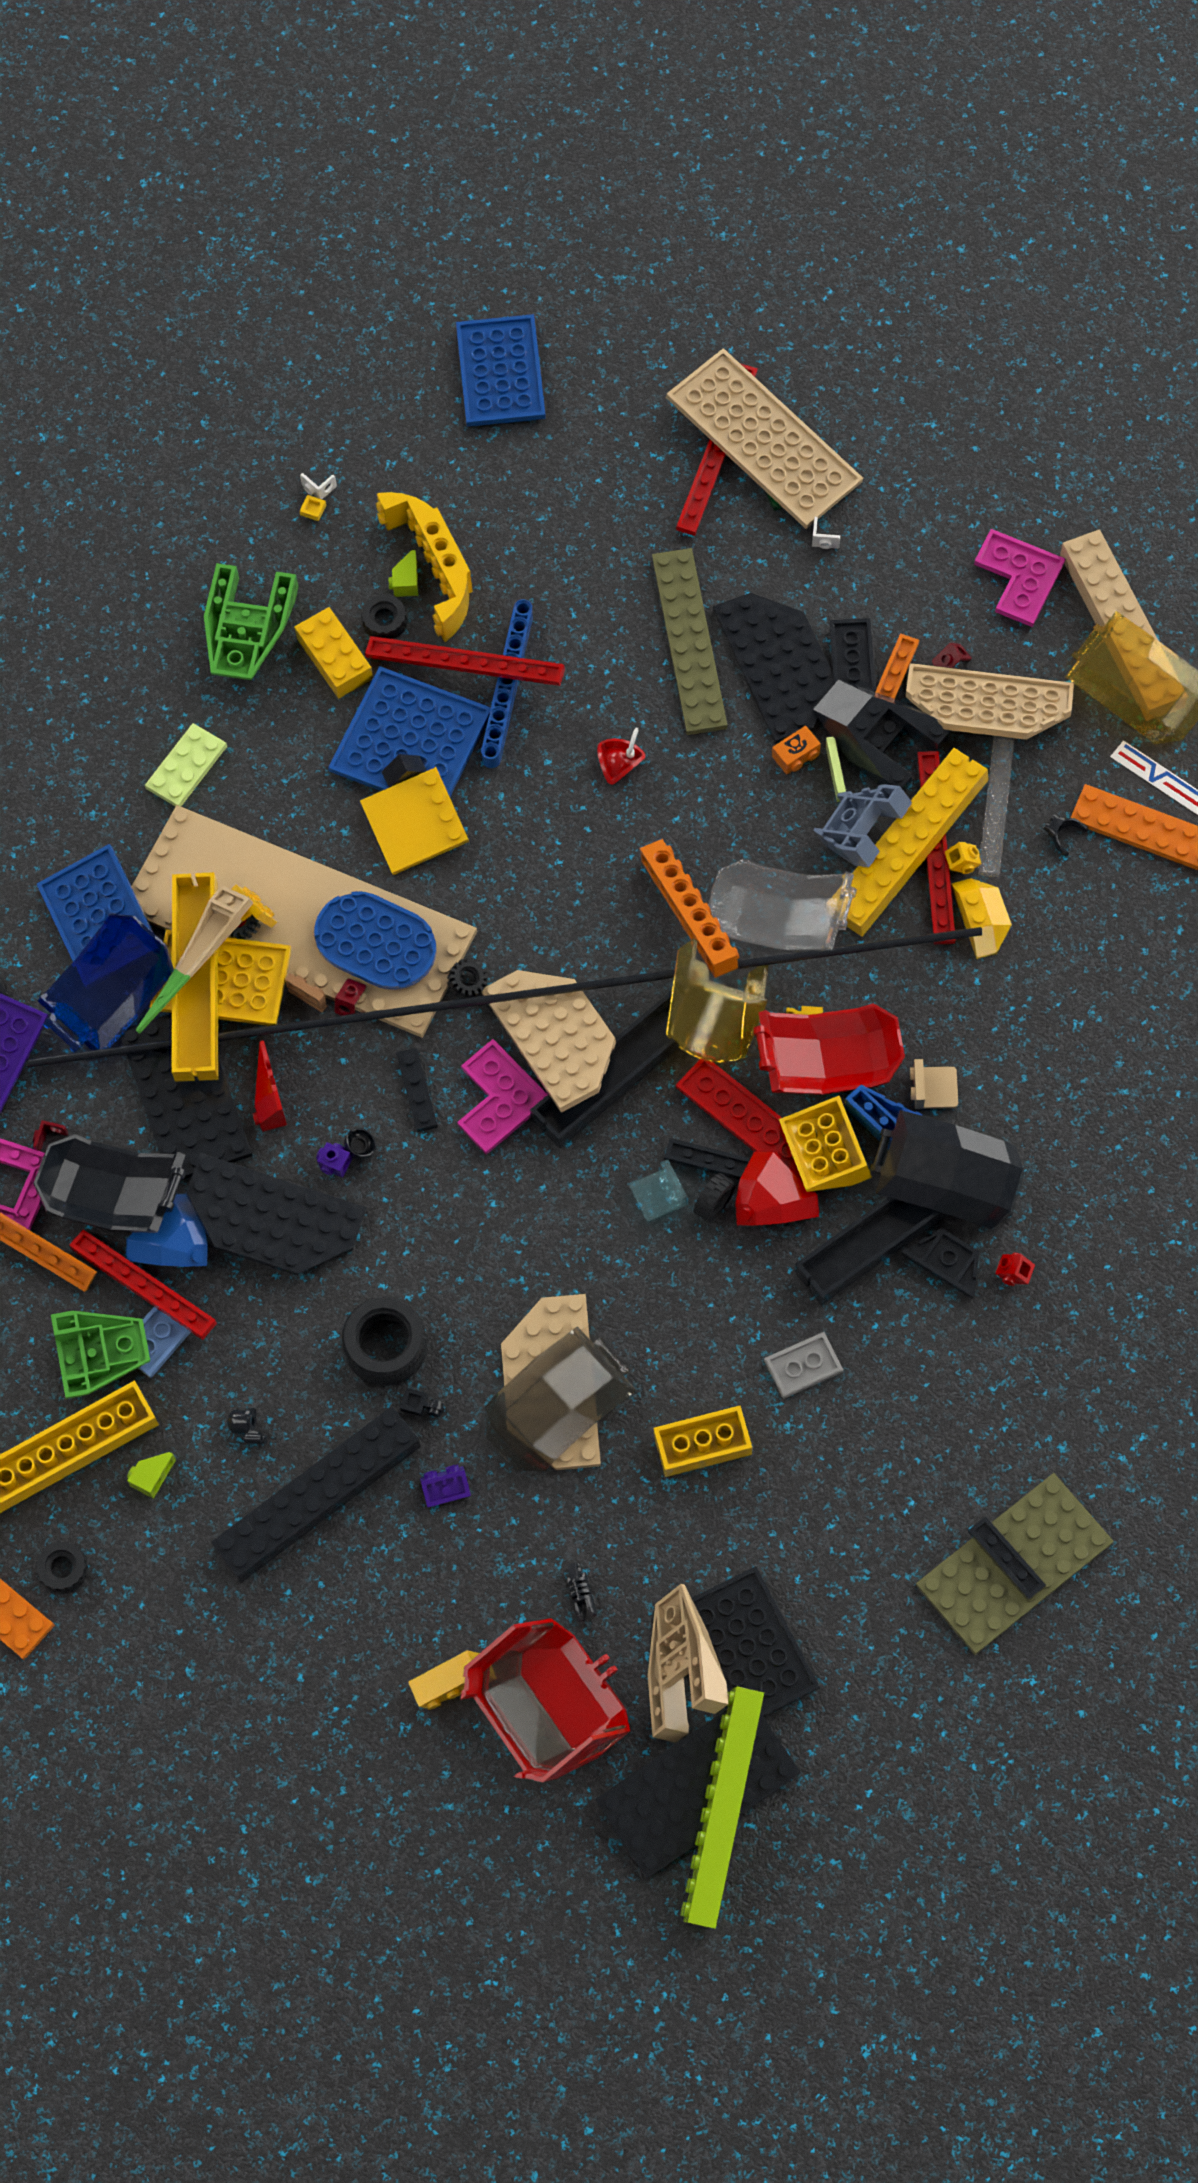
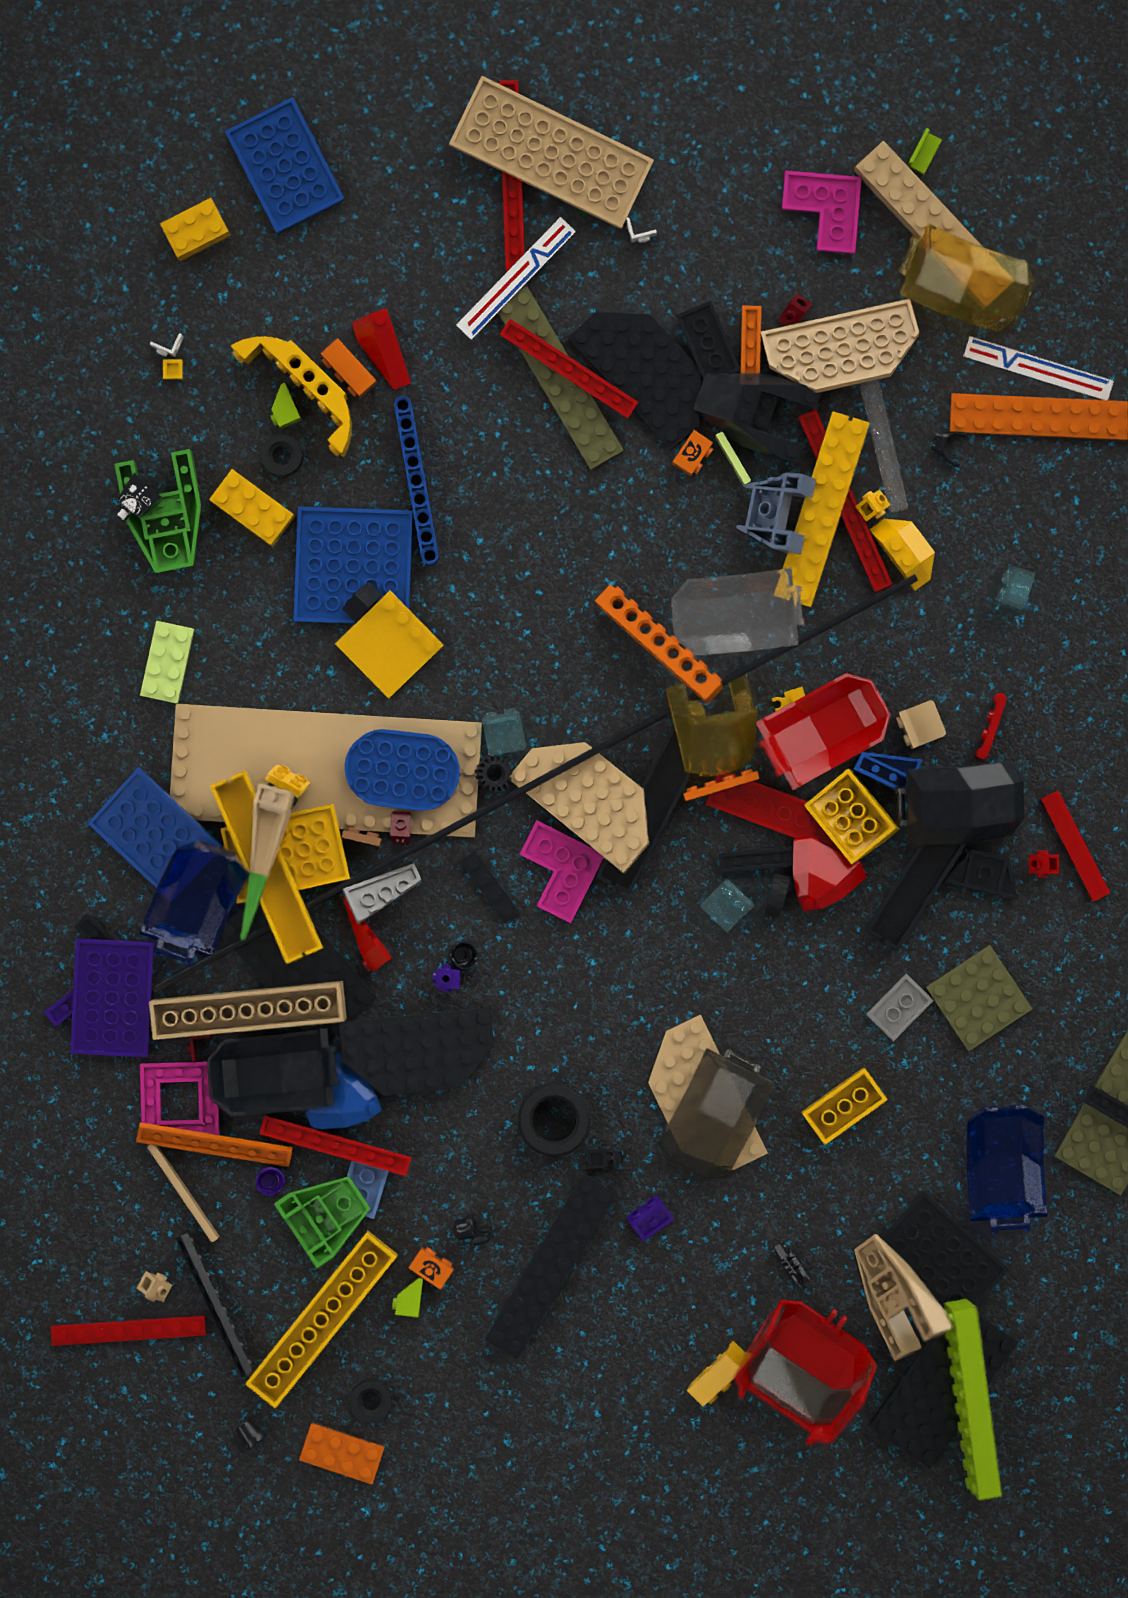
camera: 25 degrees left, 20 degrees up
(58, 1296) = (269, 1181): none -> dark purple hair
(113, 1113) = (248, 1010): none -> tan brick
(188, 1450) = (431, 1267): none -> orange brick
(224, 597) = (137, 498): none -> black torso
(299, 1048) = (379, 891): none -> light grey wing
(389, 394) = (195, 229): none -> yellow brick
(465, 661) = (373, 477): red plate -> none
(483, 562) = (348, 369): none -> orange brick
(495, 942) = (503, 732): none -> clear light blue bracket
(525, 552) = (380, 343): none -> red wedge
(619, 757) = (542, 517): red hat -> none
(683, 536) = (515, 278): none -> white sticker
(702, 630) = (568, 368): none -> red plate
(705, 1068) = (728, 782): none -> orange plate
(858, 1565) = (1006, 1166): none -> clear blue windscreen
(894, 1386) = (978, 998): none -> olive plate
(1013, 1107) = (993, 719): none -> red plate
(1056, 1267) = (1075, 846): none -> red tile
(1083, 985) = (1016, 589): none -> clear light blue brick
(1137, 557) = (924, 152): none -> lime panel

